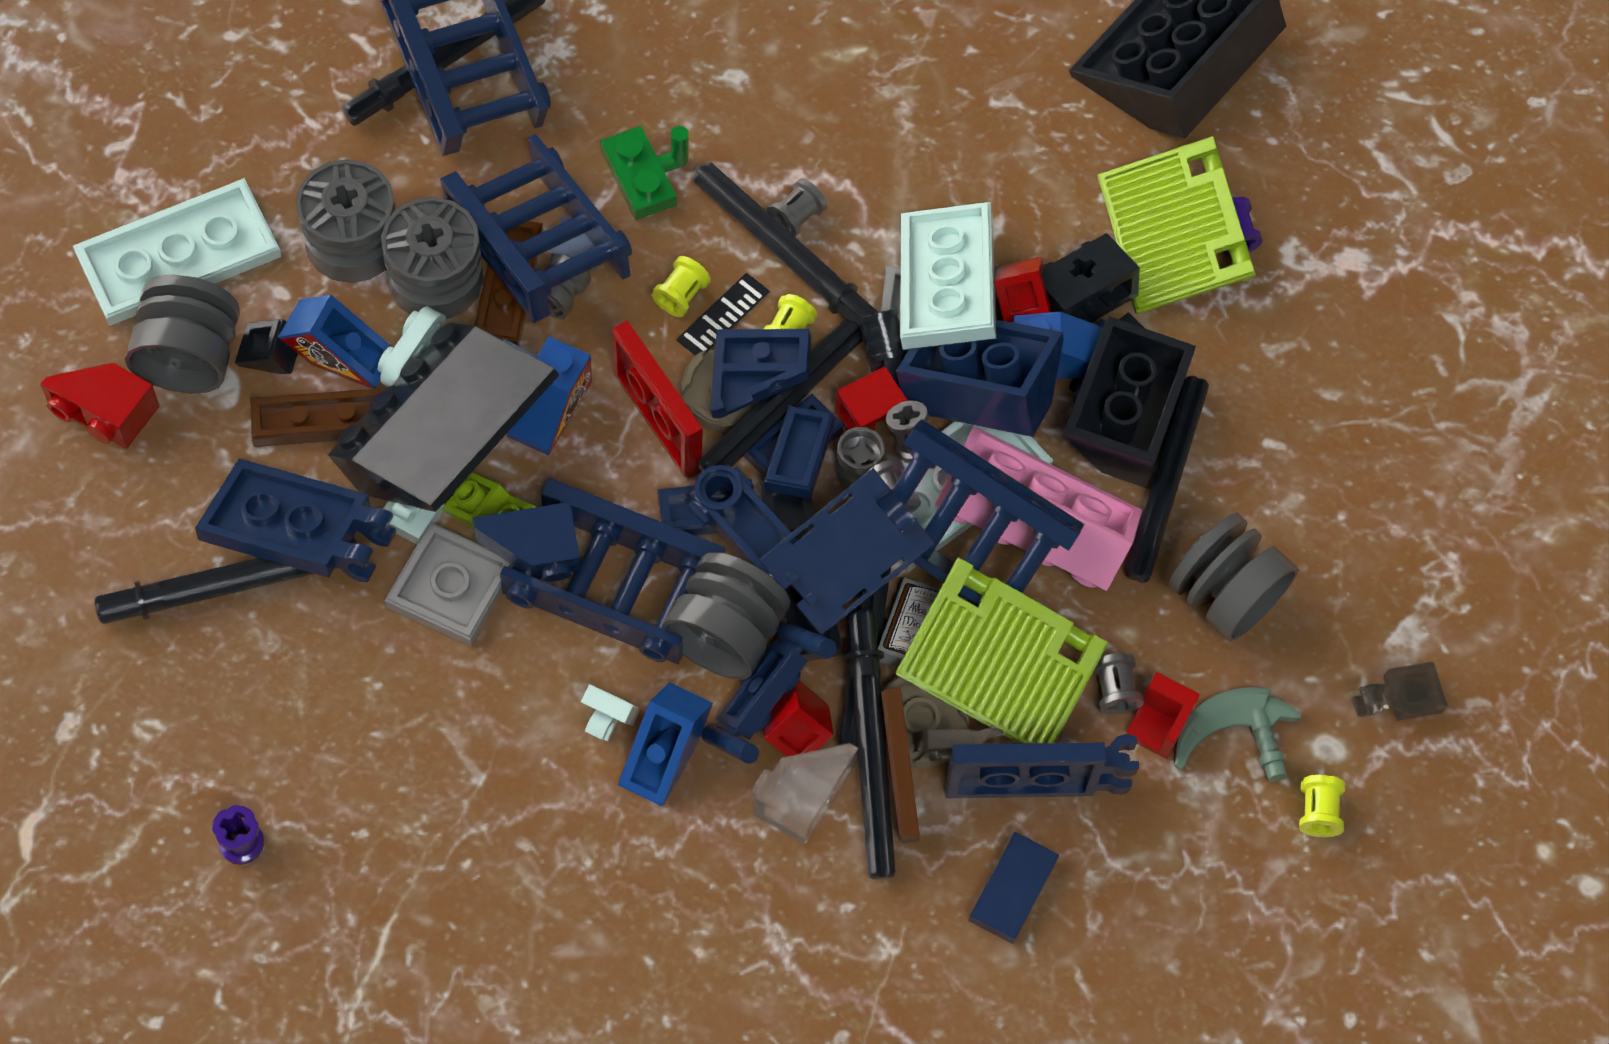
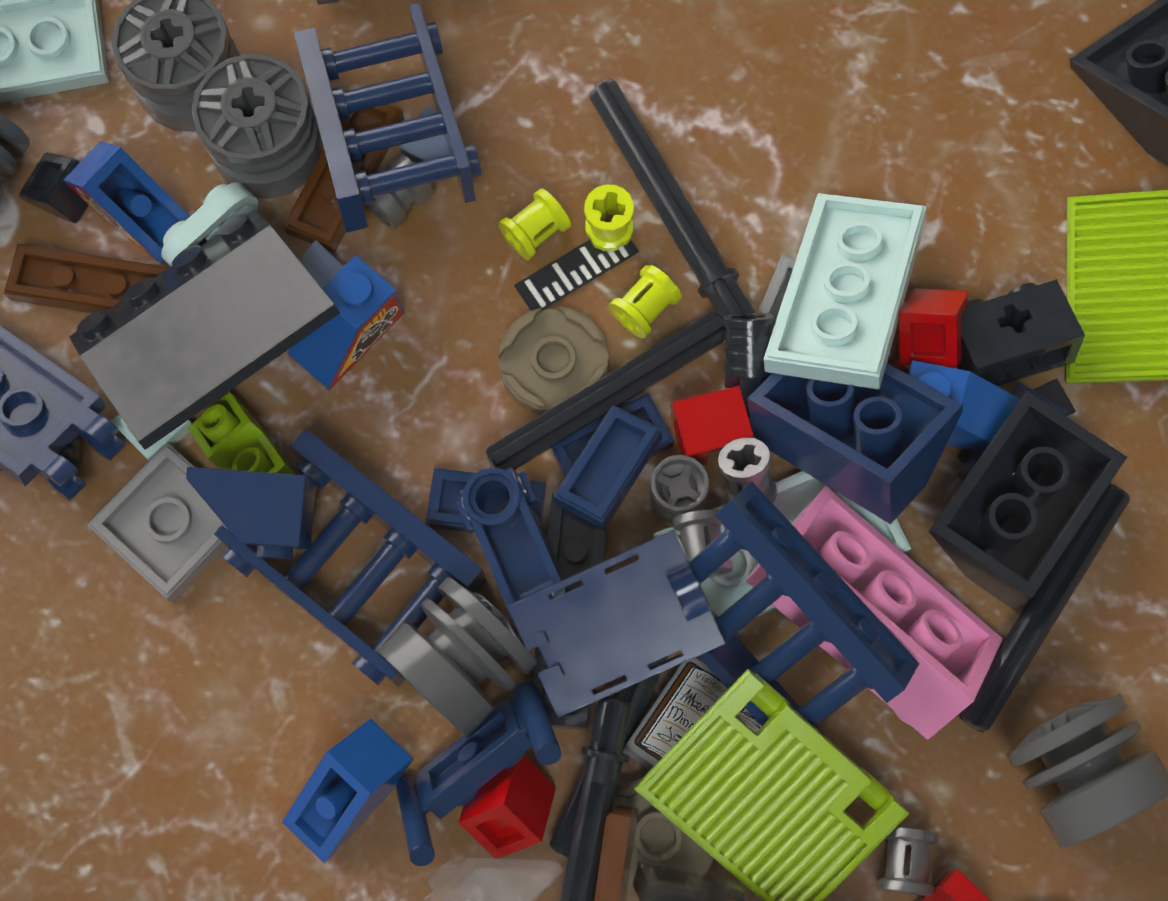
camera: 25 degrees right, 10 degrees up
(608, 710) = (294, 730): light aqua tile -> none
(641, 172) = (534, 73): green plate -> none
(657, 399) = (456, 359): red tile -> none
(741, 254) = (604, 201): none -> neon yellow bush
(756, 366) = (587, 348): dark blue wing -> none
(798, 206) = (698, 158): flat silver bush -> none

